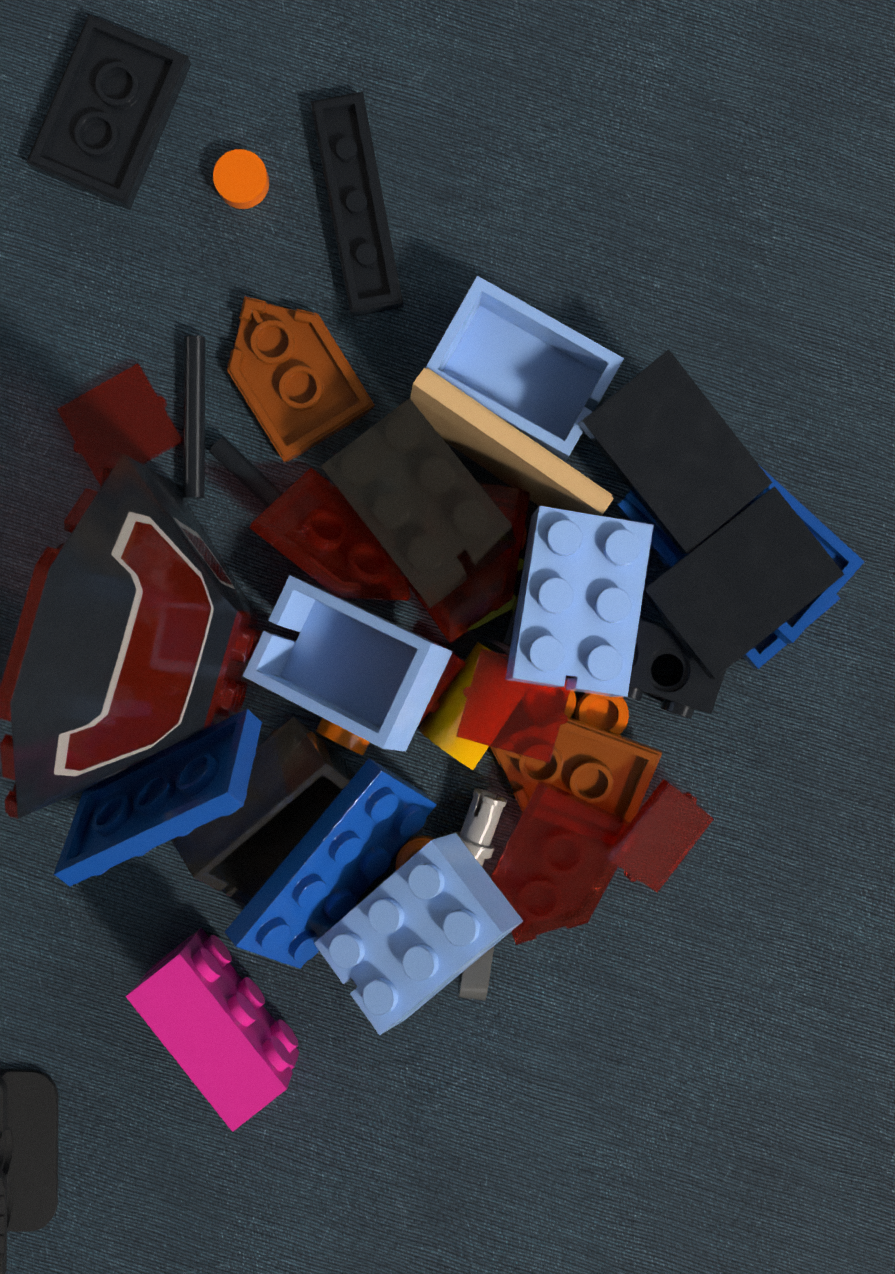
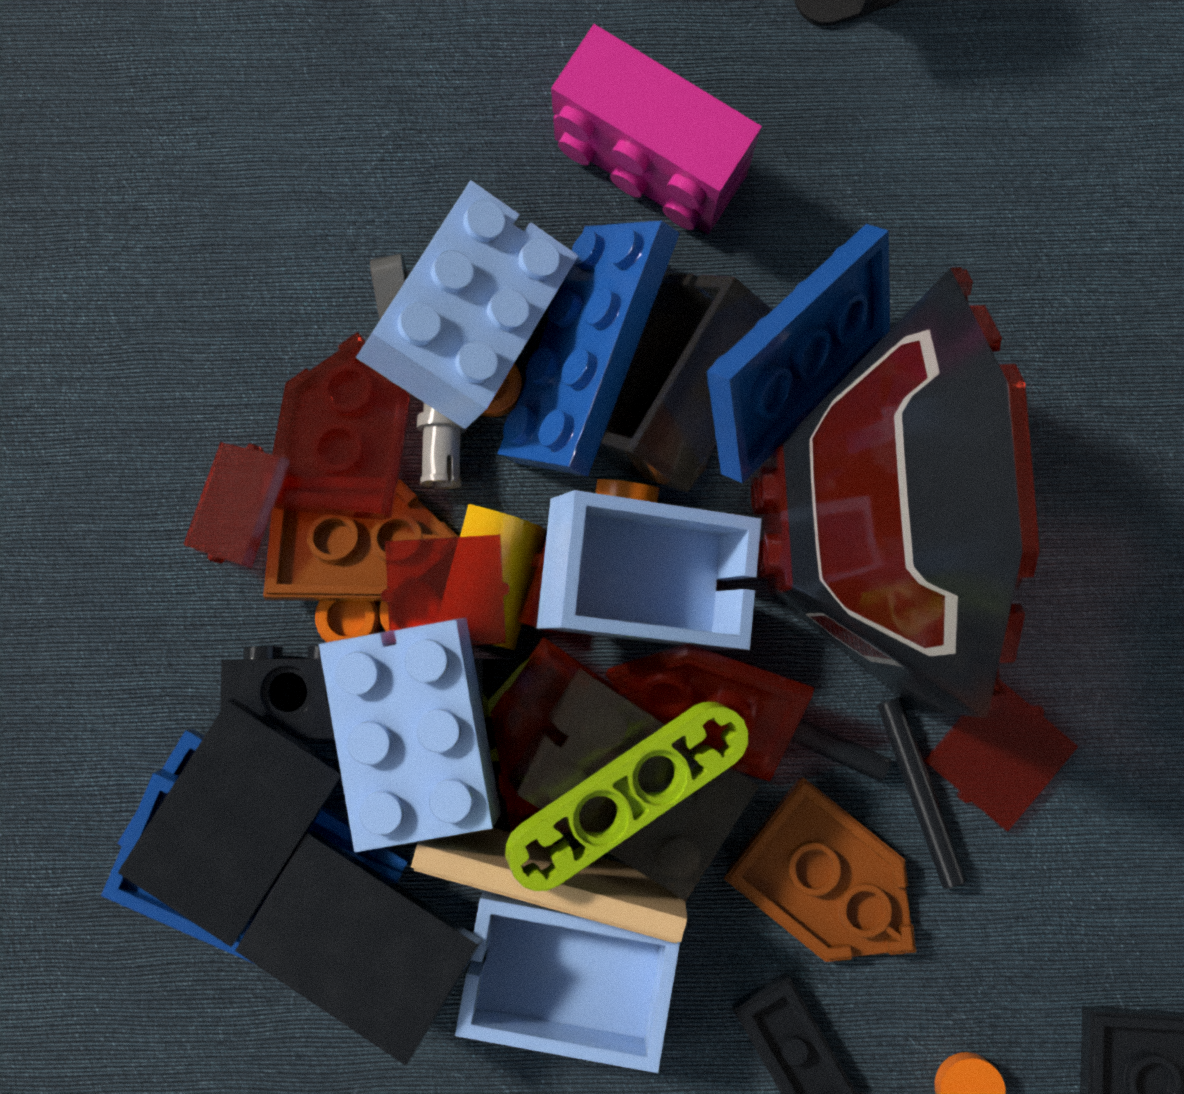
camera: 160 degrees right, 5 degrees down
(427, 504) = (633, 805): none -> lime beam

